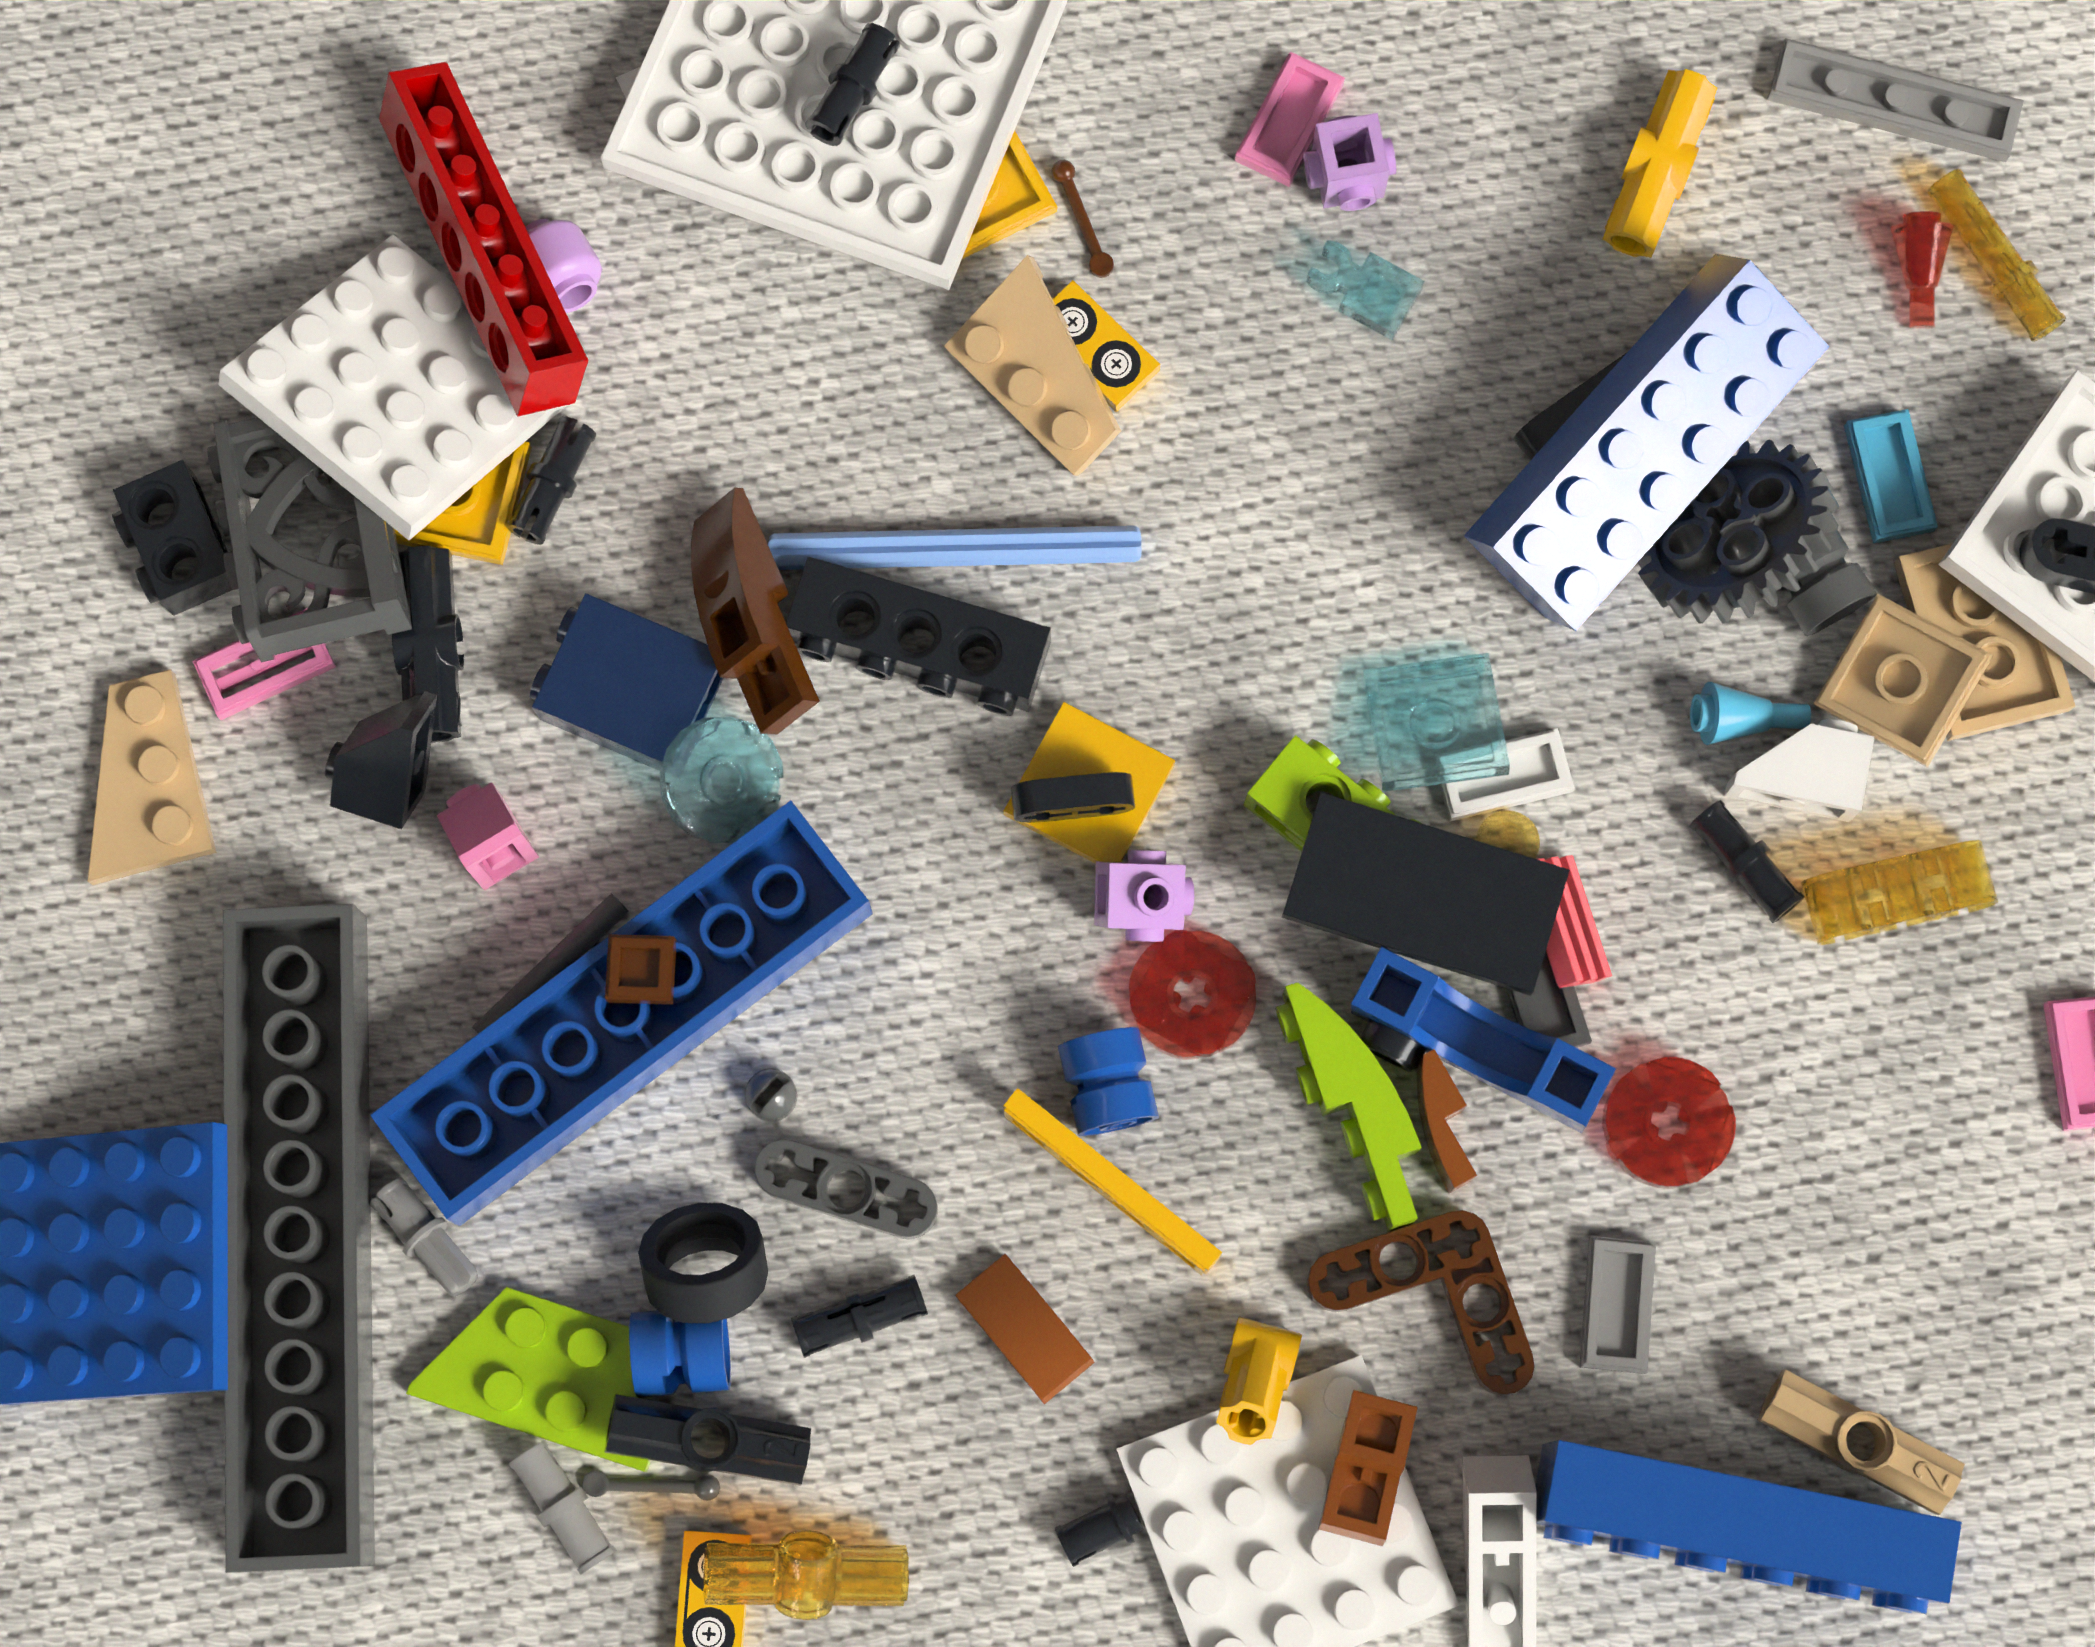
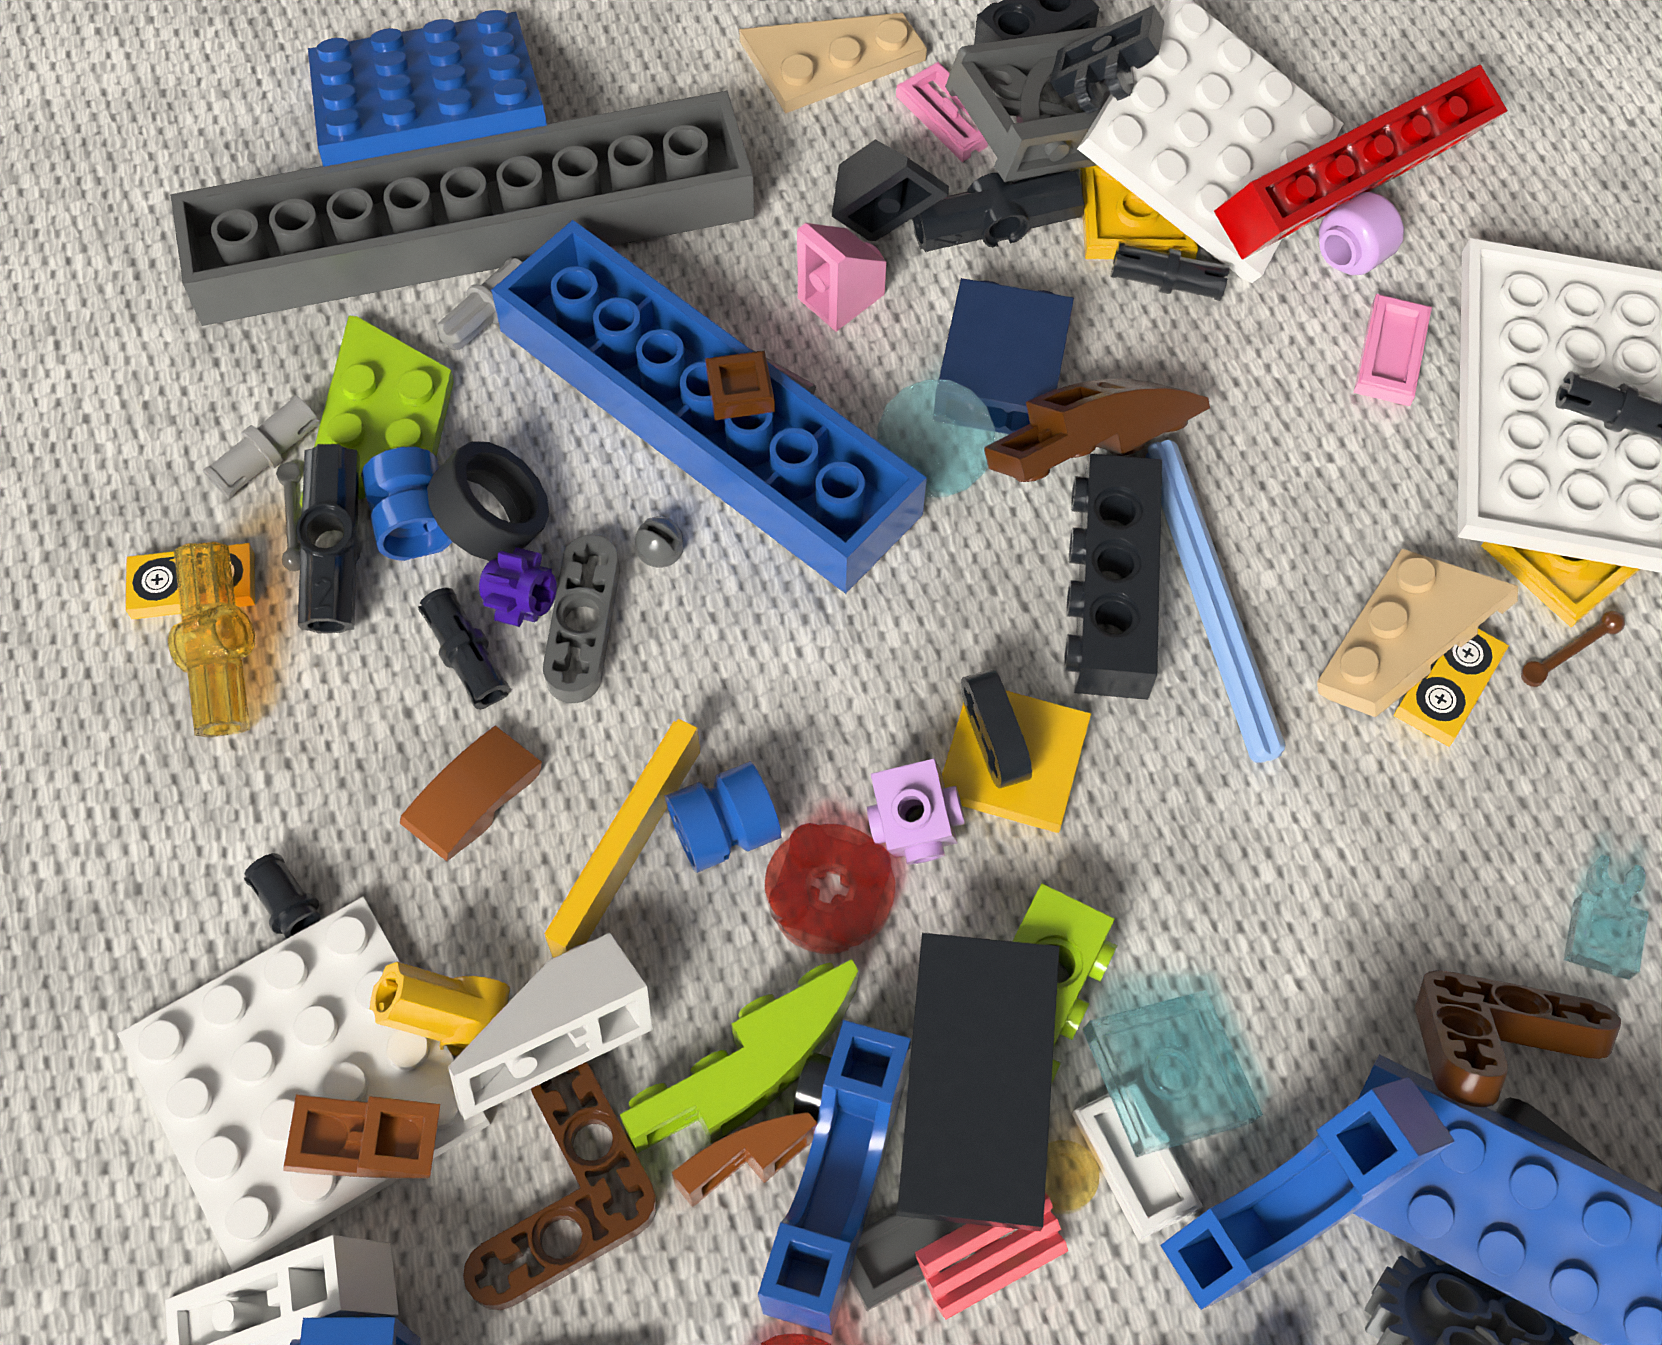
camera: 75 degrees right, 15 degrees down
(293, 476) = (1108, 56): none -> black hinge
(699, 276) = (1393, 350): none -> bright pink tile
(806, 1248) = (517, 587): none -> dark purple gear
(1283, 1256) = (557, 1021): none -> white slope
(1428, 456) = (1470, 1015): none -> reddish brown beam
(1579, 599) = (1335, 1175): none -> blue arch

